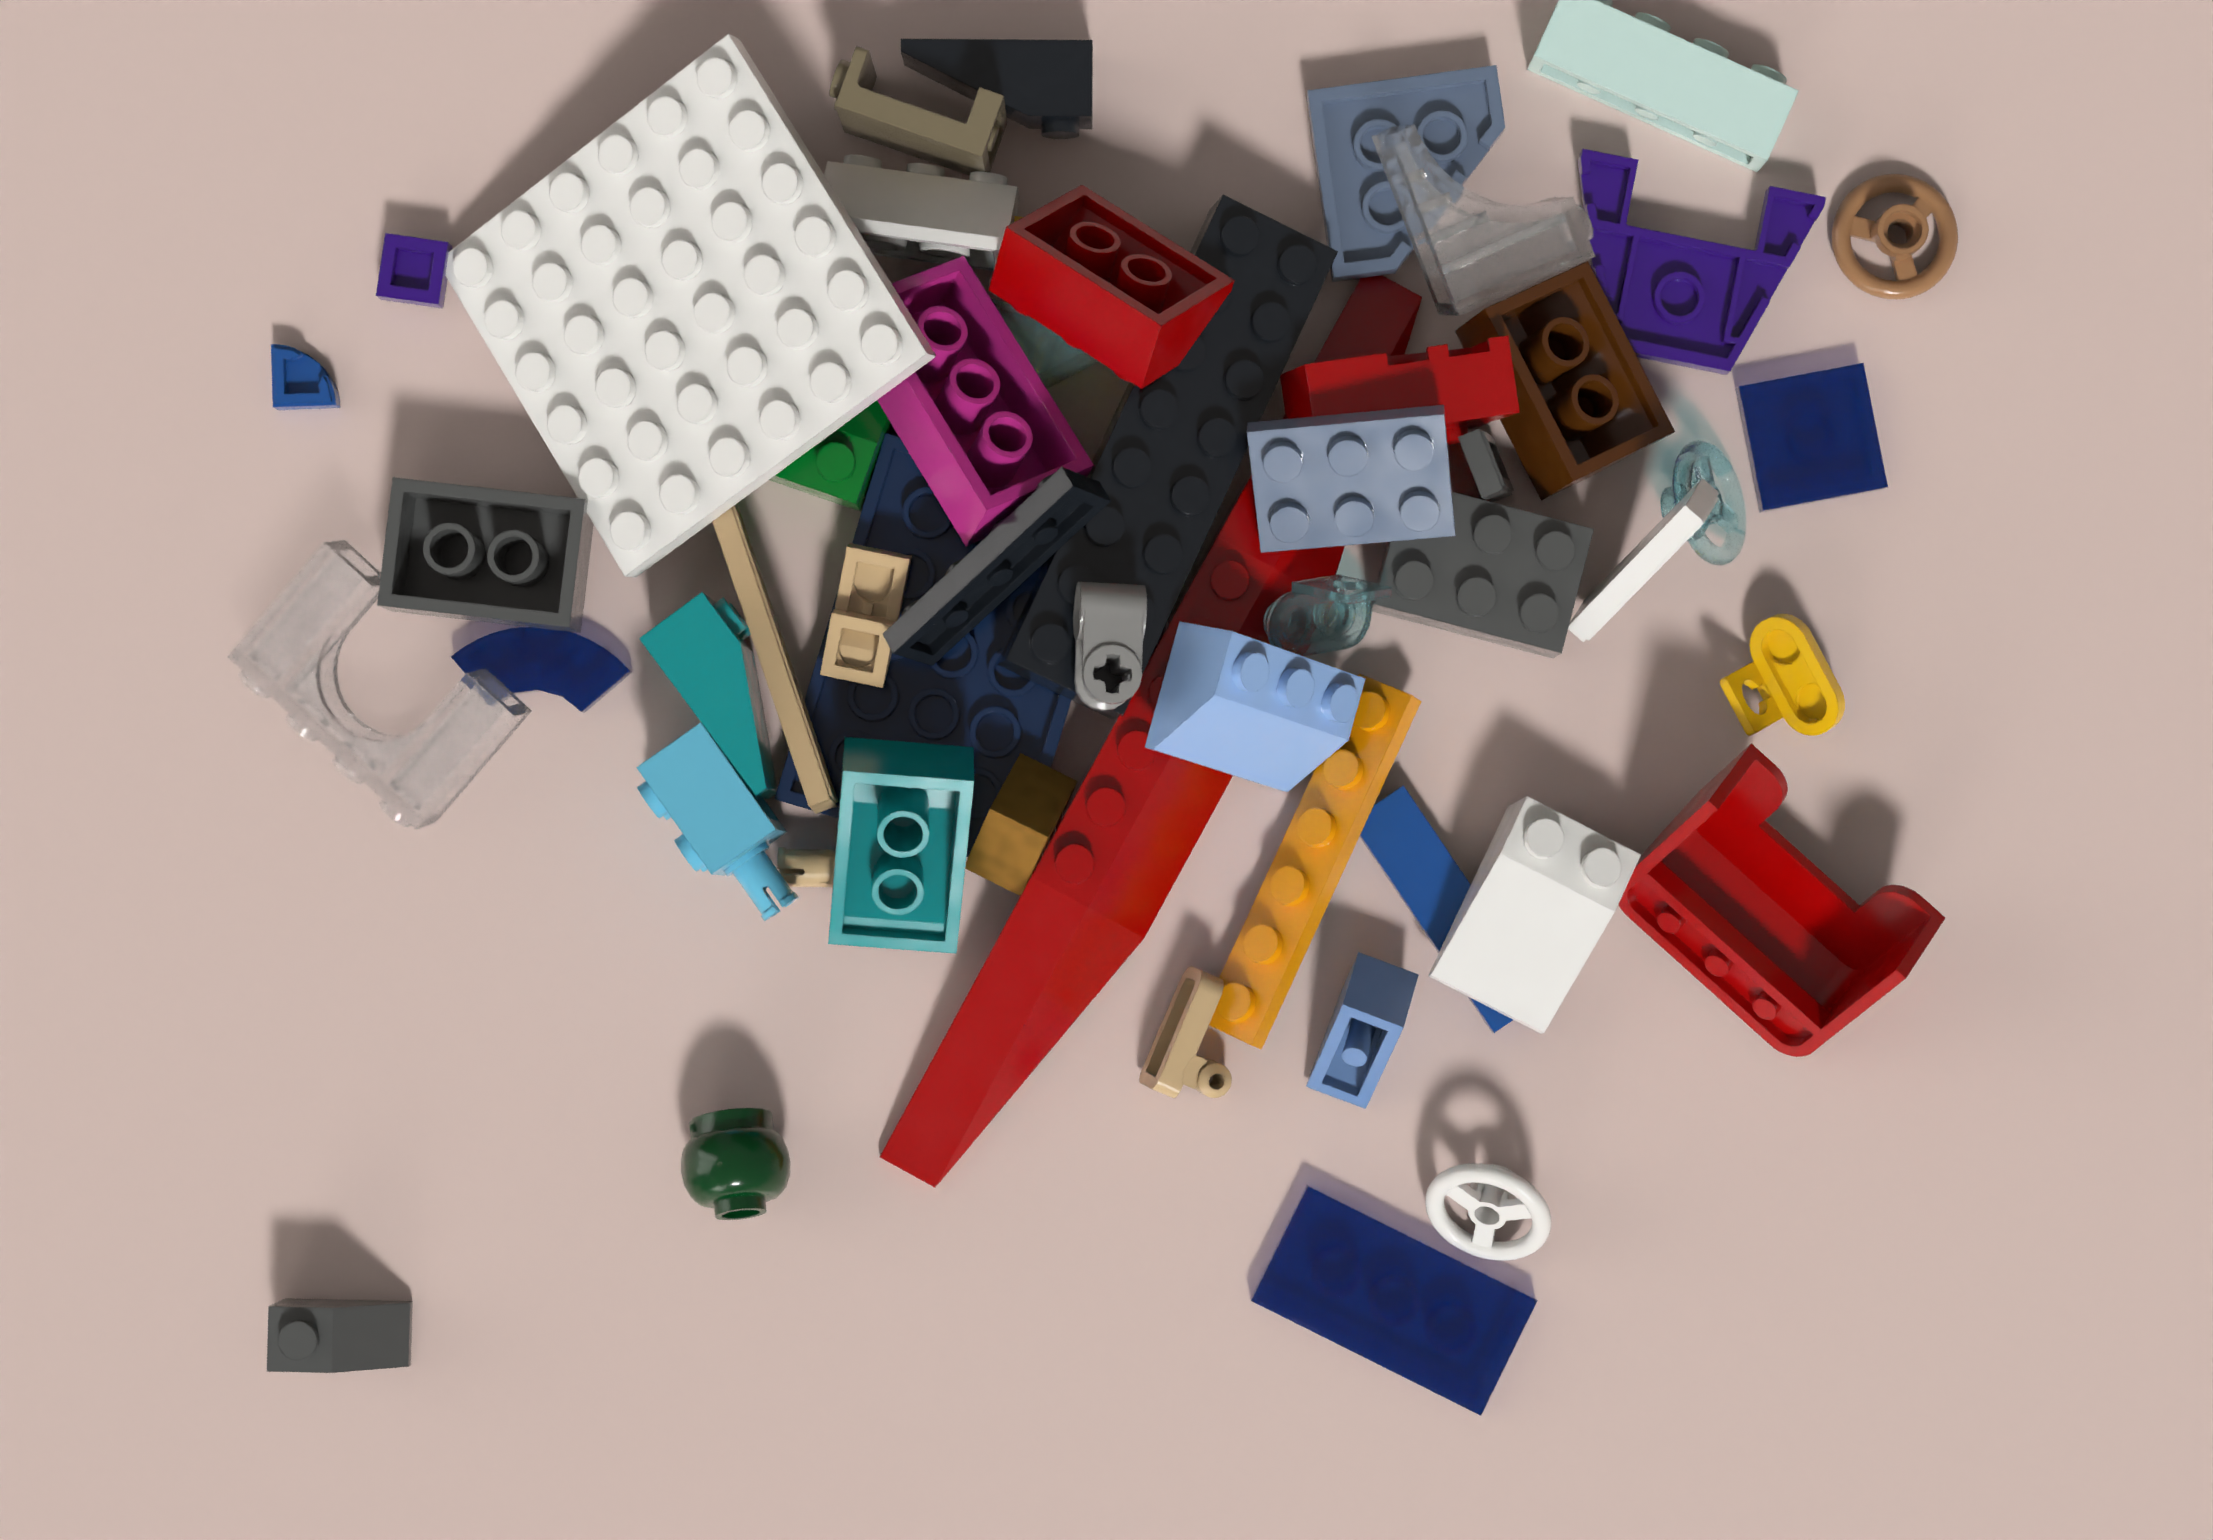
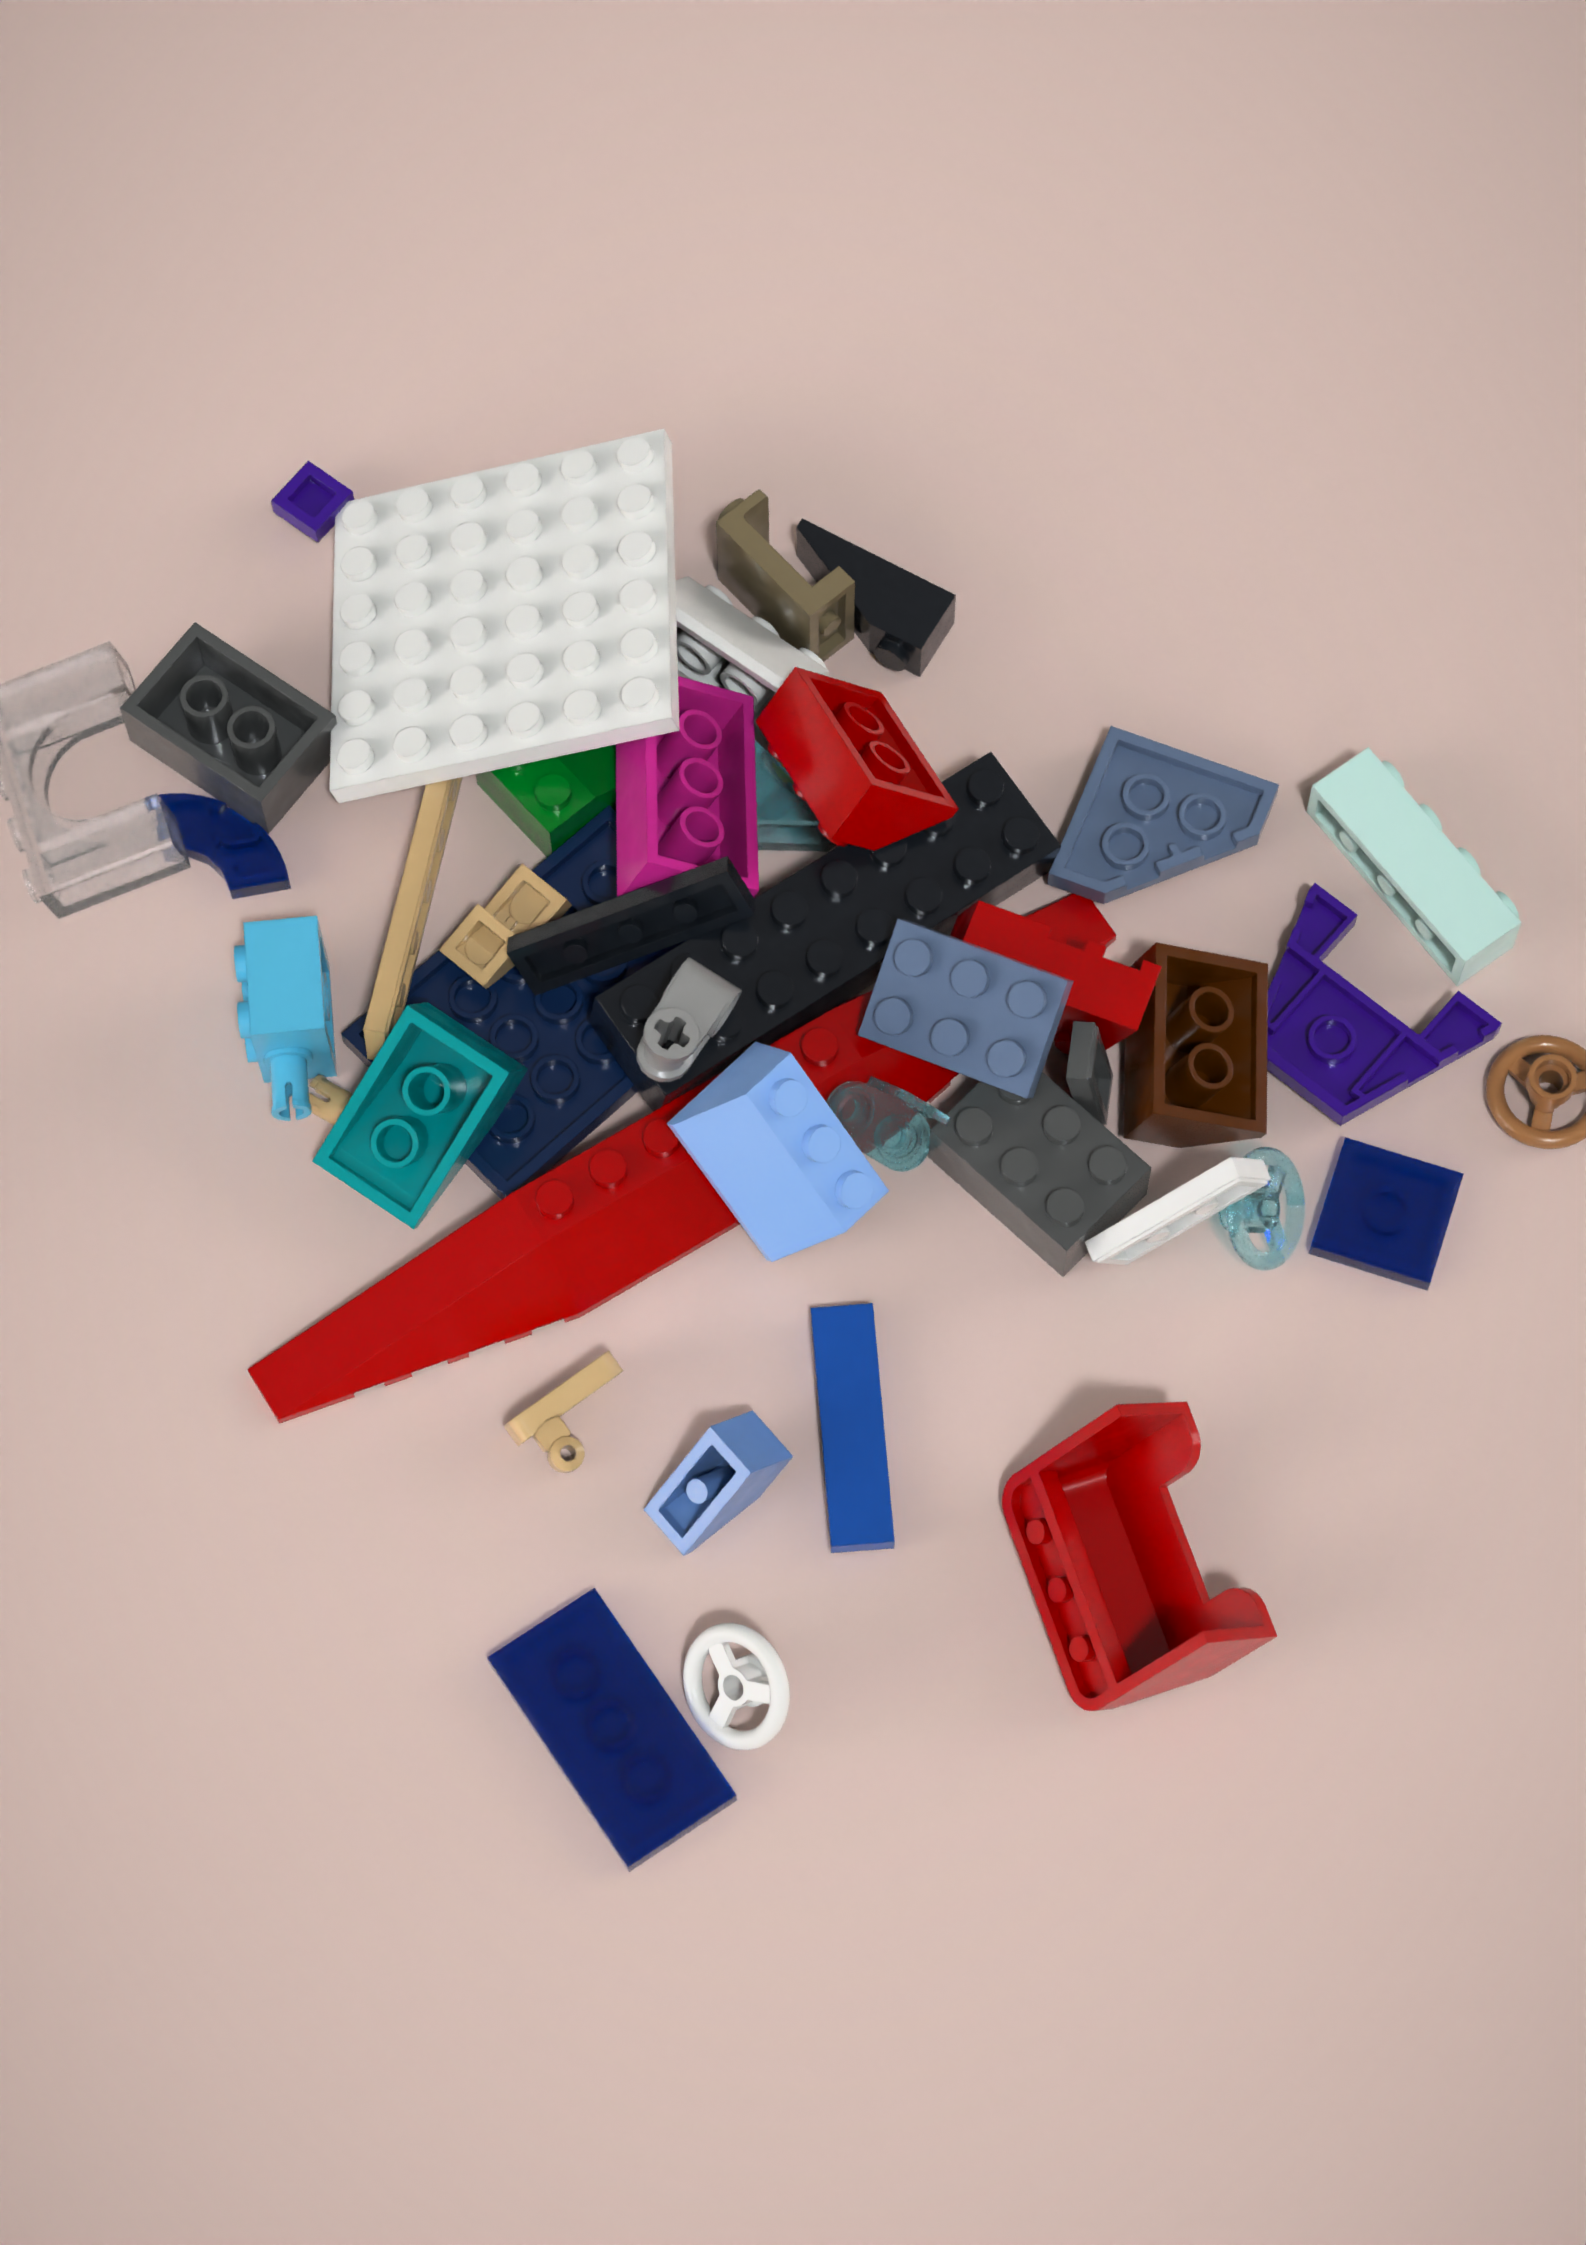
camera: 25 degrees right, 20 degrees down
(300, 381) = (171, 539): blue tile -> none
(717, 677) = (355, 900): teal slope -> none
(735, 1162) = (125, 1294): dark green piece -> none
(1020, 824) = (525, 1147): pearl gold slope -> none
(1310, 865) = (754, 1323): light orange plate -> none
(1470, 244) = (1180, 897): clear arch -> none
(1533, 913) = (921, 1457): white slope -> none
(1790, 679) = (1257, 1389): yellow bracket -> none

